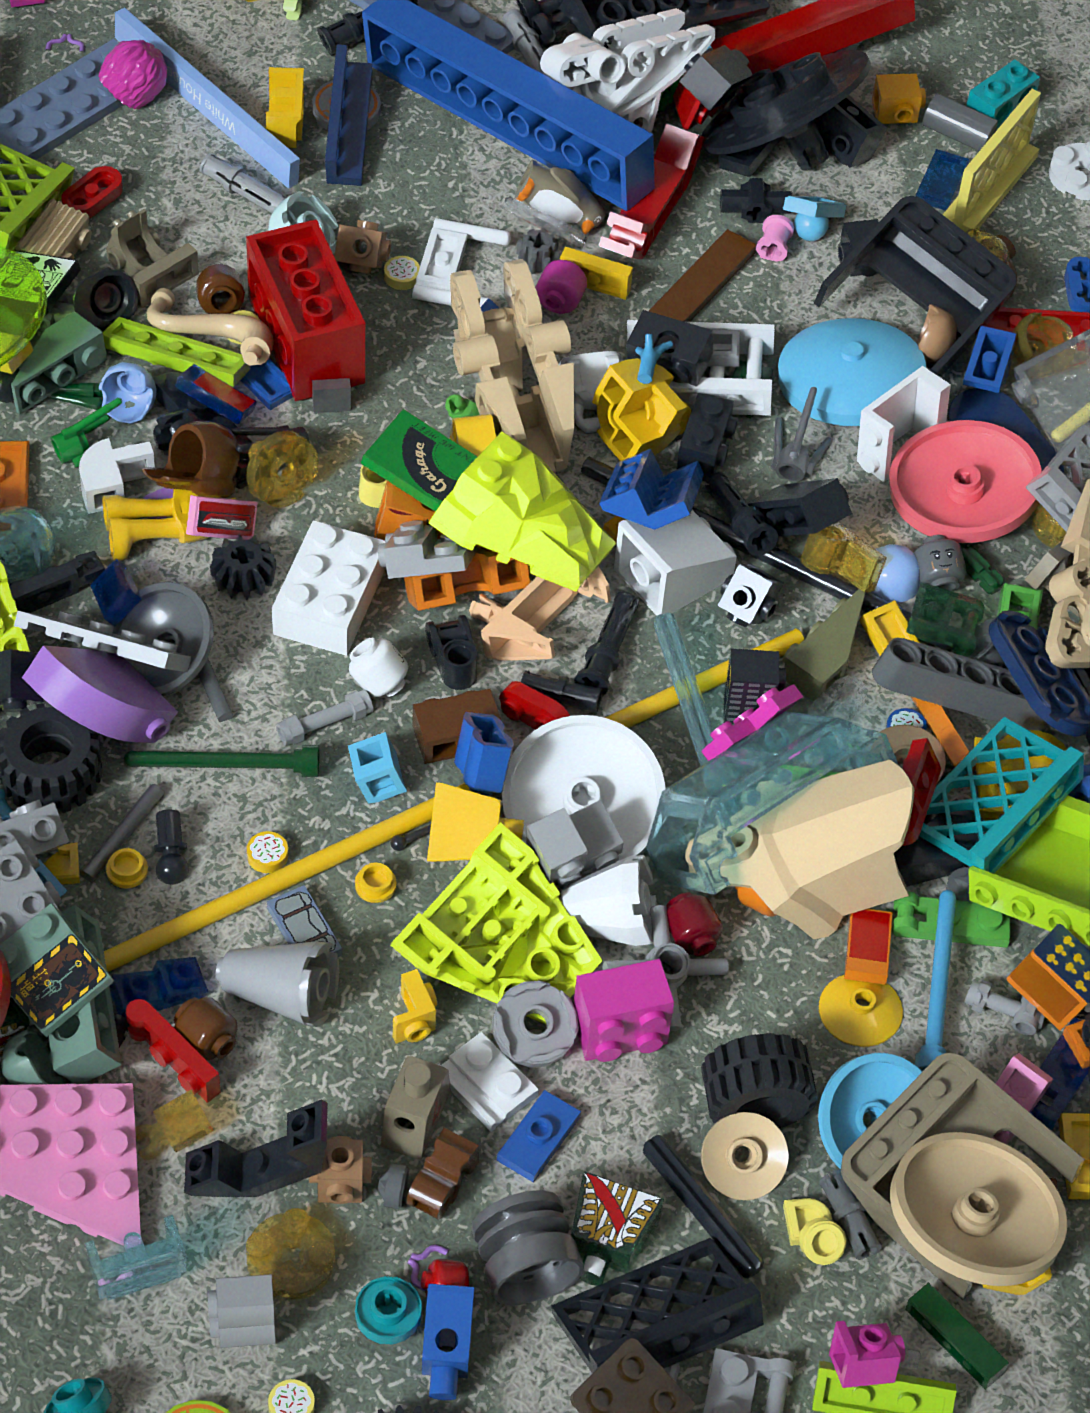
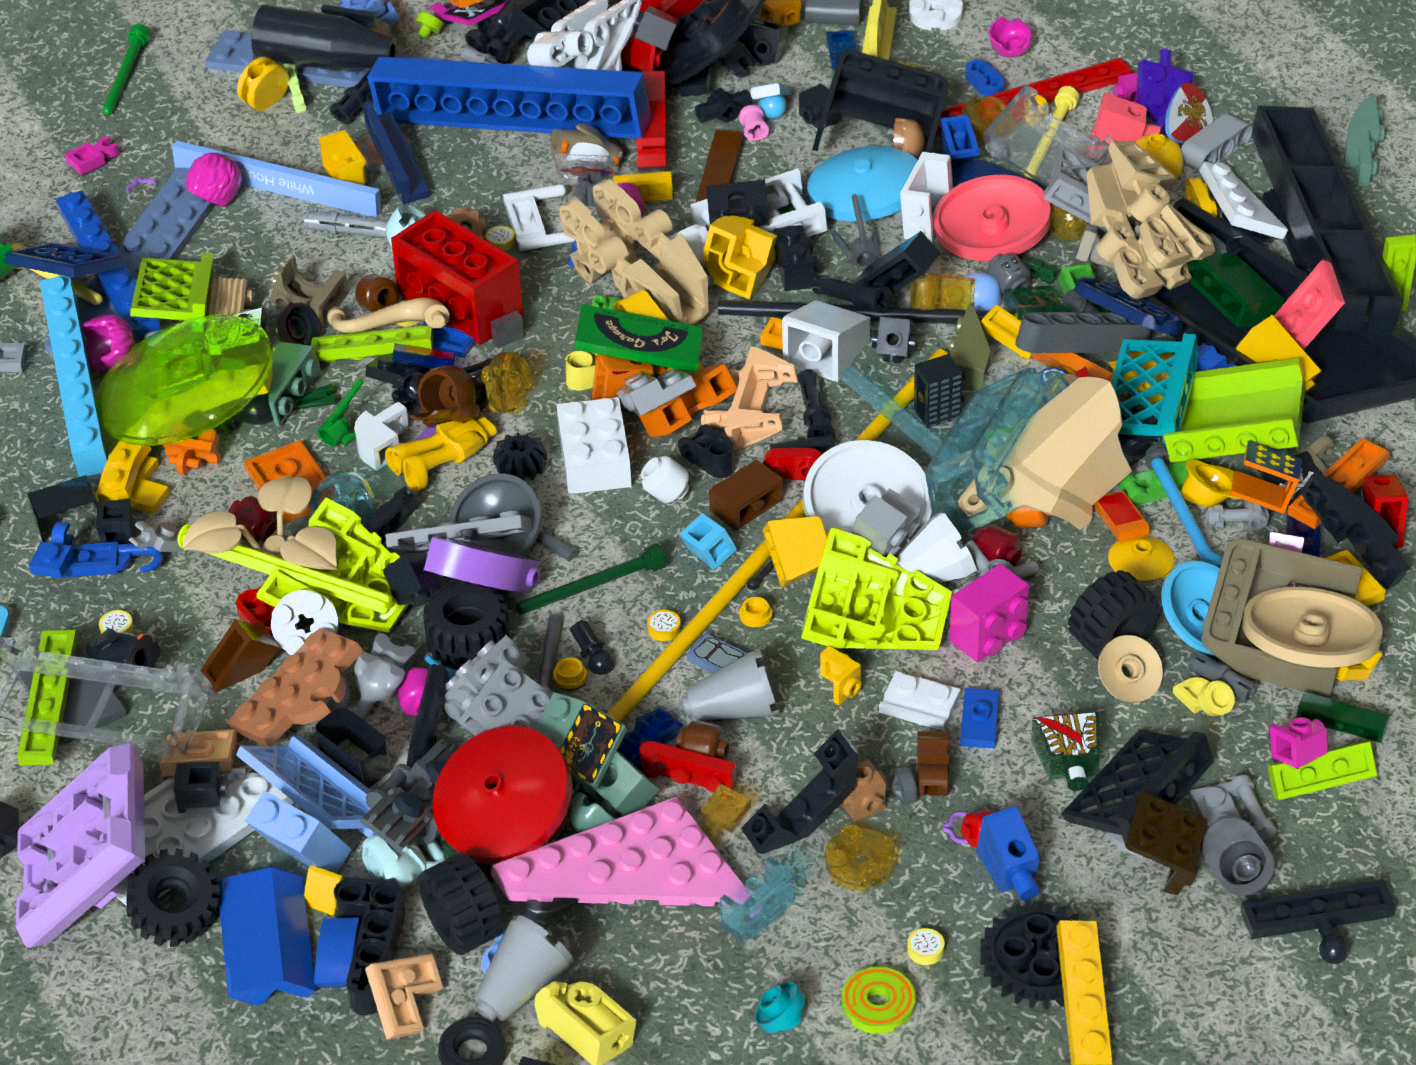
camera: 20 degrees left, 10 degrees down
(88, 193) = (235, 263): red plate -> none
(115, 592) = (440, 504): clear blue tile -> none
(132, 384) = (349, 371): light blue hair -> none
(221, 517) = (485, 427): slope -> none
(242, 1311) = (859, 896): light grey brick -> none
(293, 729) = (629, 542): light grey bar -> none
(388, 1310) = (955, 859): teal plate -> none
(419, 1097) = (882, 715): dark tan torso -> none
(483, 753) = (784, 495): blue brick -> none
(523, 513) = (711, 335): neon yellow wedge -> none
(527, 1247) = (1027, 776): flat silver wheel -> none
(530, 1048) = (927, 664): light grey tile -> none
(647, 496) = (800, 294): blue slope -> none
(649, 358) = (733, 211): dark azure bar -> none
(703, 1206) = (1117, 711): black axle -> none
(771, 706) = (950, 413): dark pink plate -> none
(992, 948) = (1207, 483): none -> yellow piece

